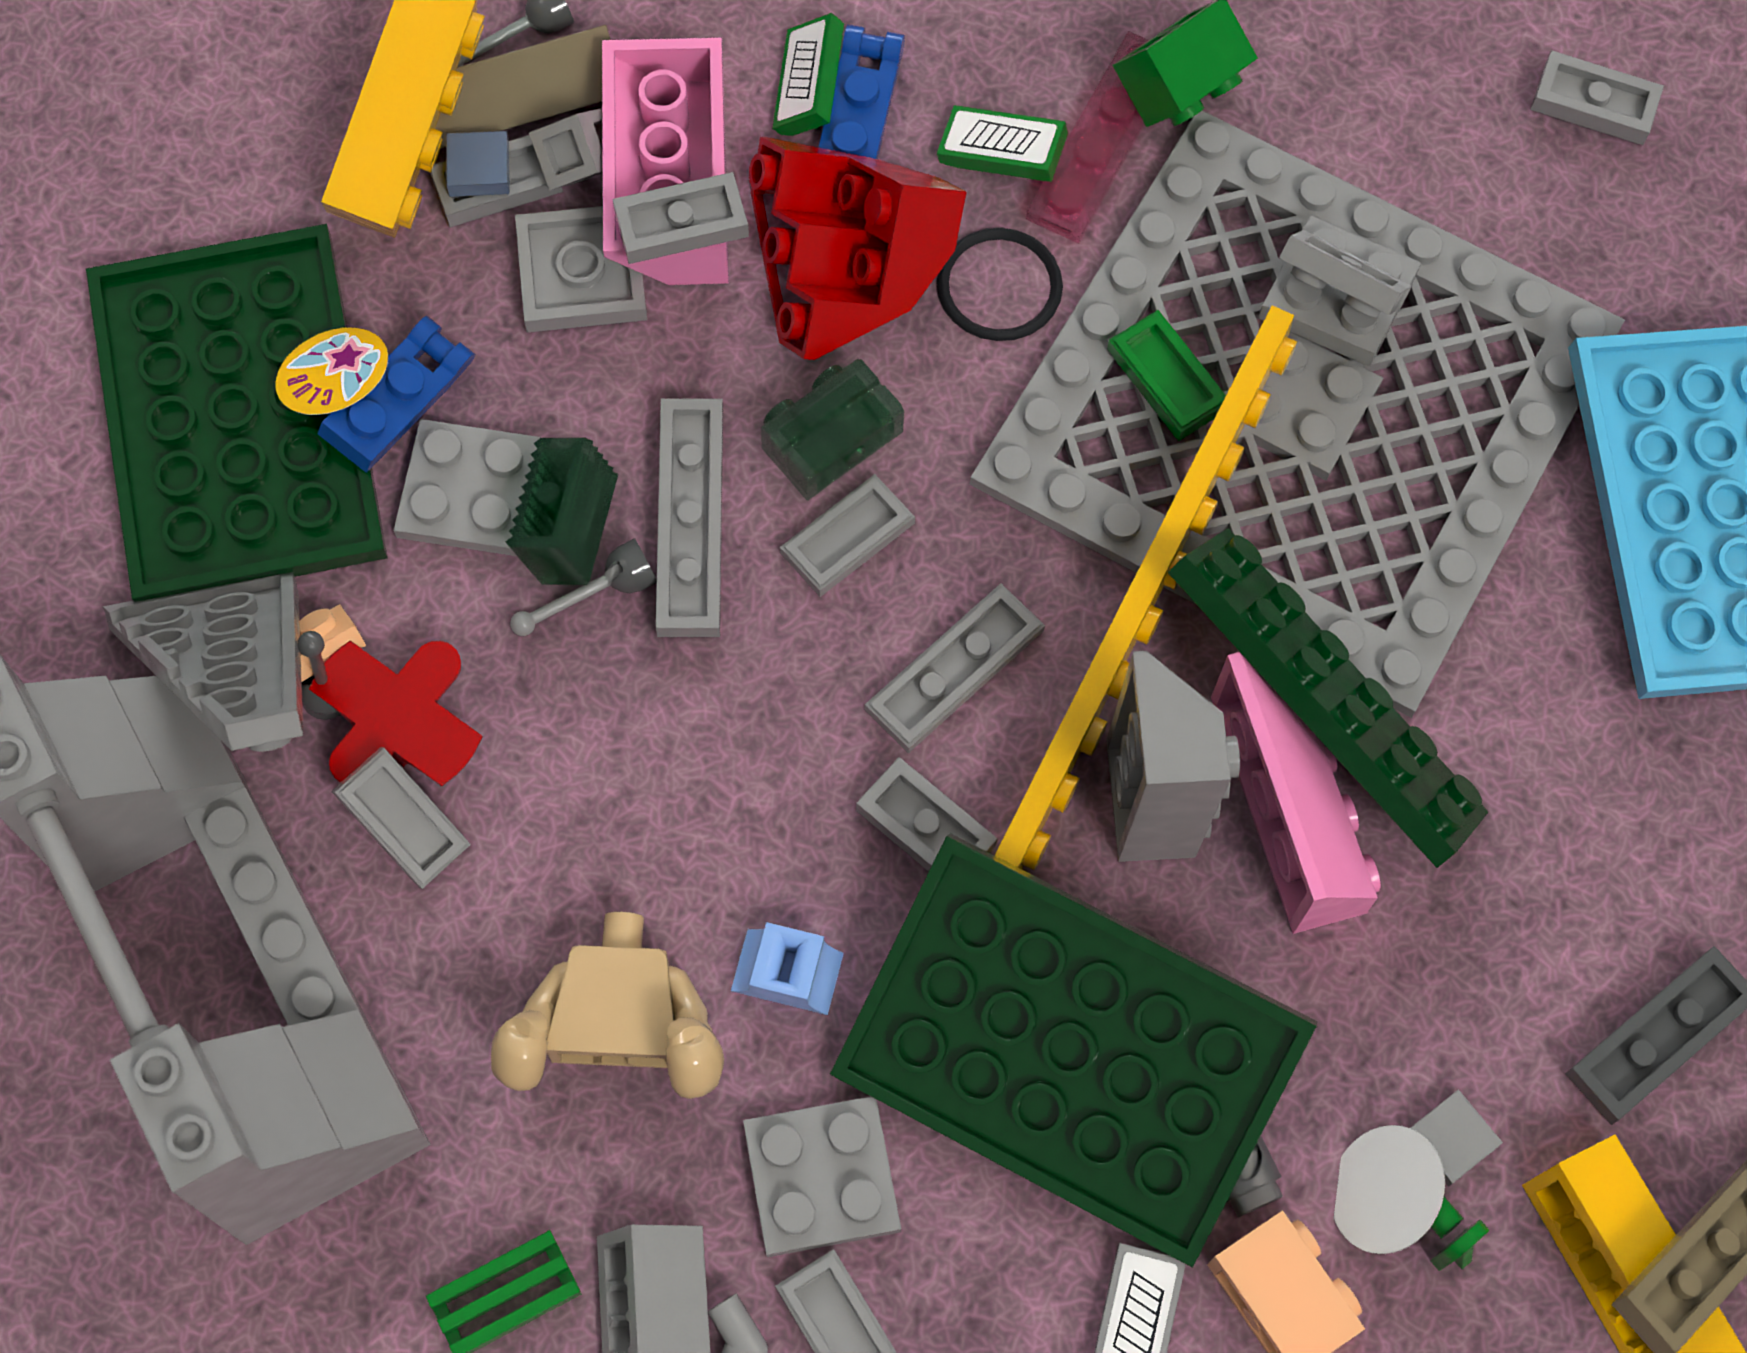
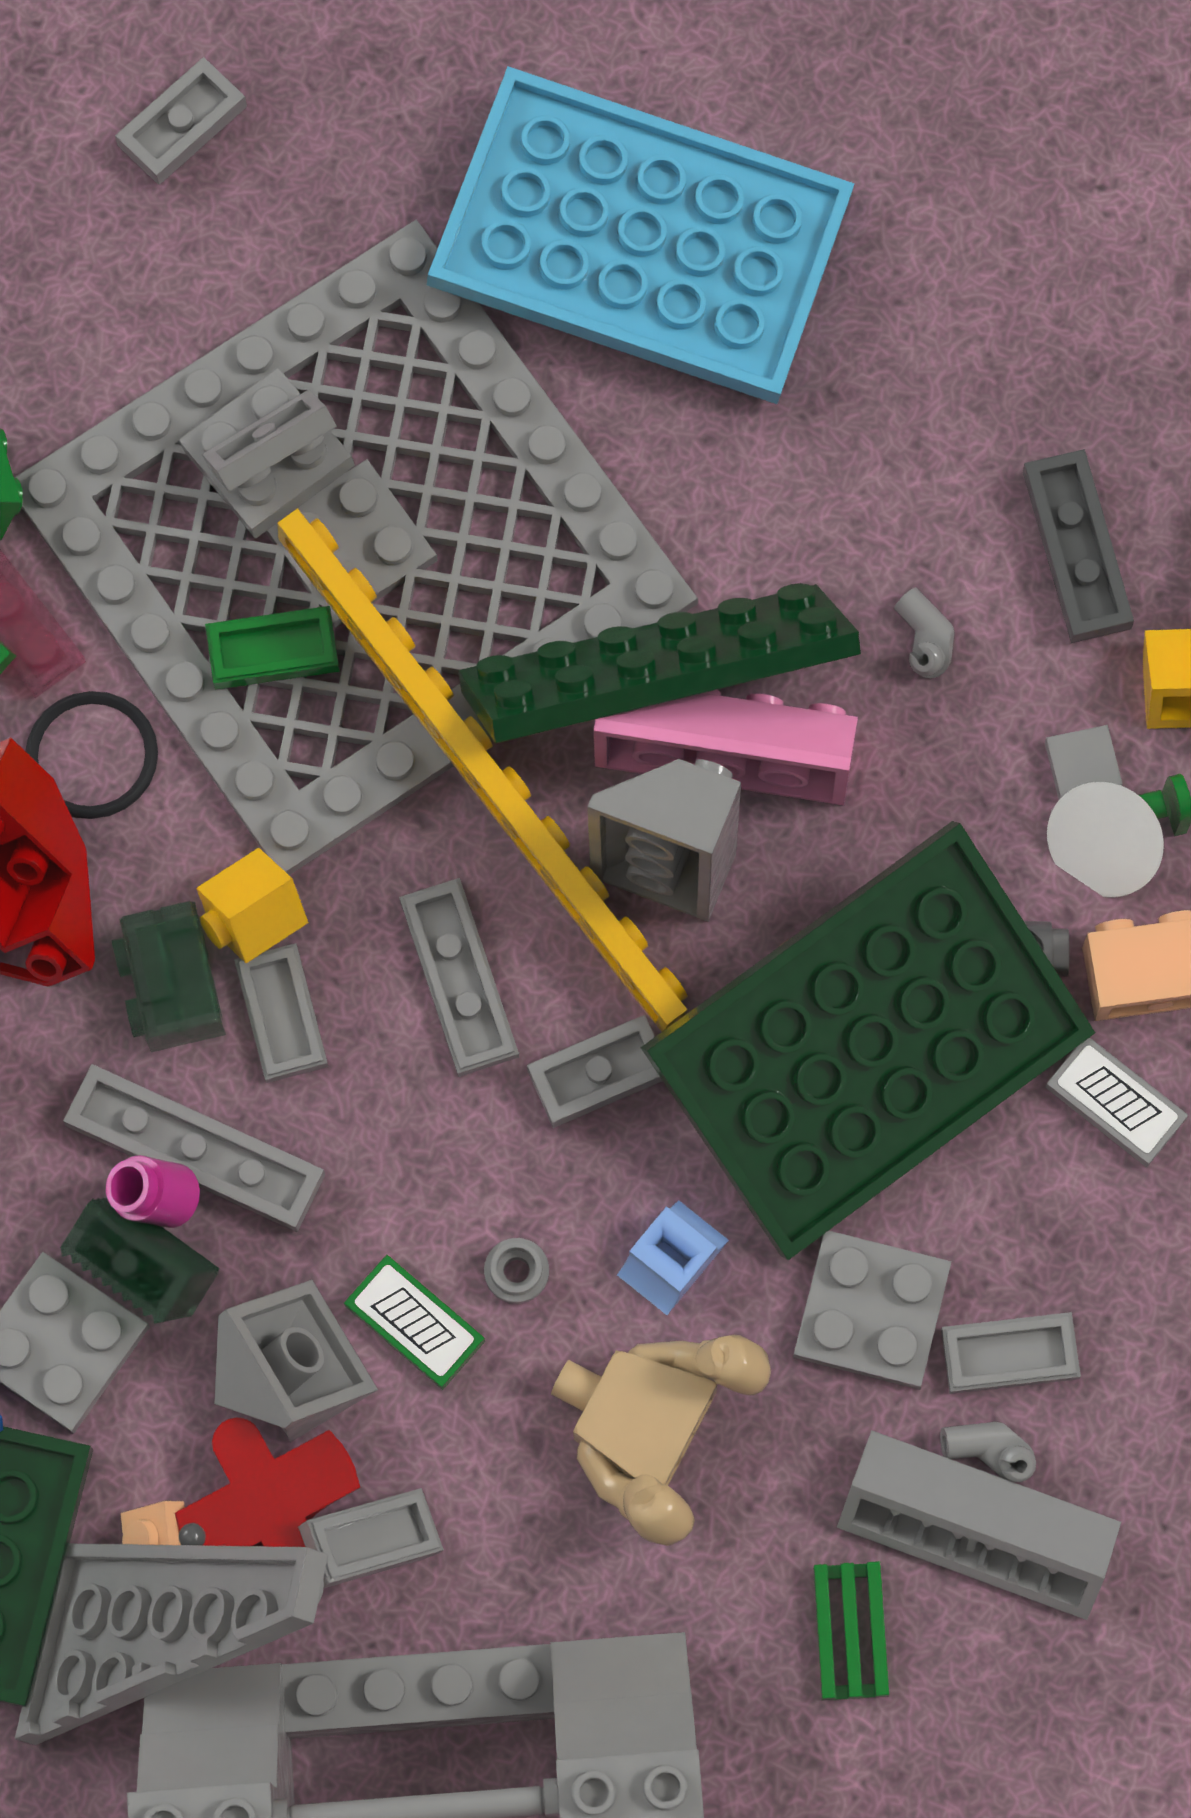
camera: 60 degrees left, 5 degrees up
(531, 675) = (287, 1361): none -> light grey slope
(620, 771) = (414, 1322): none -> tile
(624, 570) = (219, 1230): hinge -> none
(625, 489) = (153, 1191): none -> dark pink brick
(708, 817) = (512, 1250): none -> light grey plate
(923, 459) = (250, 906): none -> yellow brick
(1500, 940) = (933, 634): none -> light grey arm

